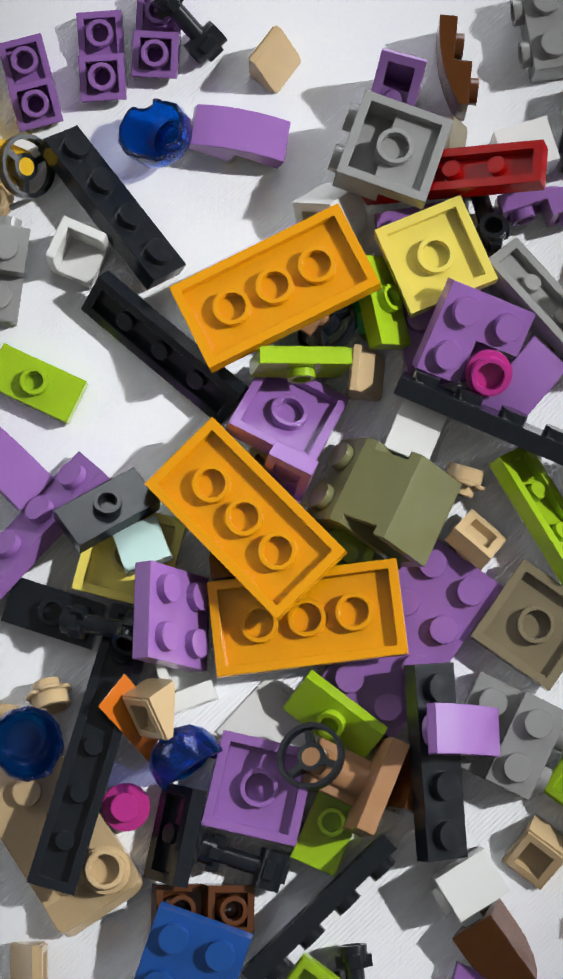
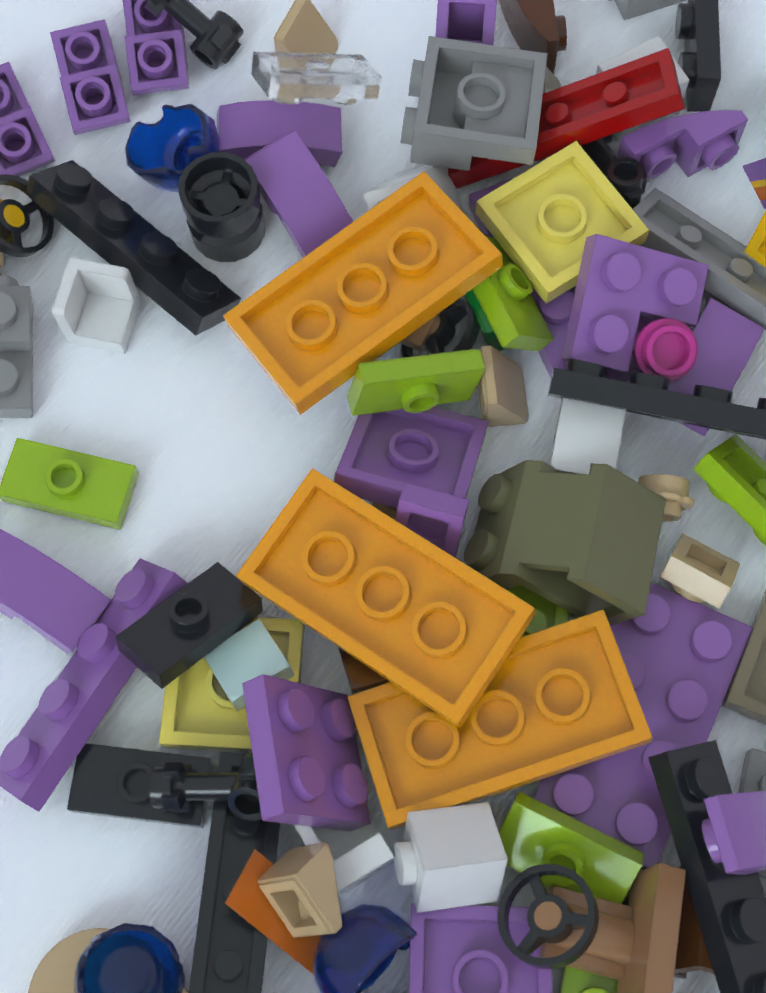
camera: 10 degrees left, 10 degrees down
(50, 695) = (154, 903): tan plate -> none
(162, 347) = (229, 402): black plate -> none
(184, 191) = (222, 206): none -> black wheel
(245, 194) = (298, 192): none -> medium lavender slope
(255, 704) = (451, 857): none -> white brick
(275, 94) = (334, 77): none -> clear plate

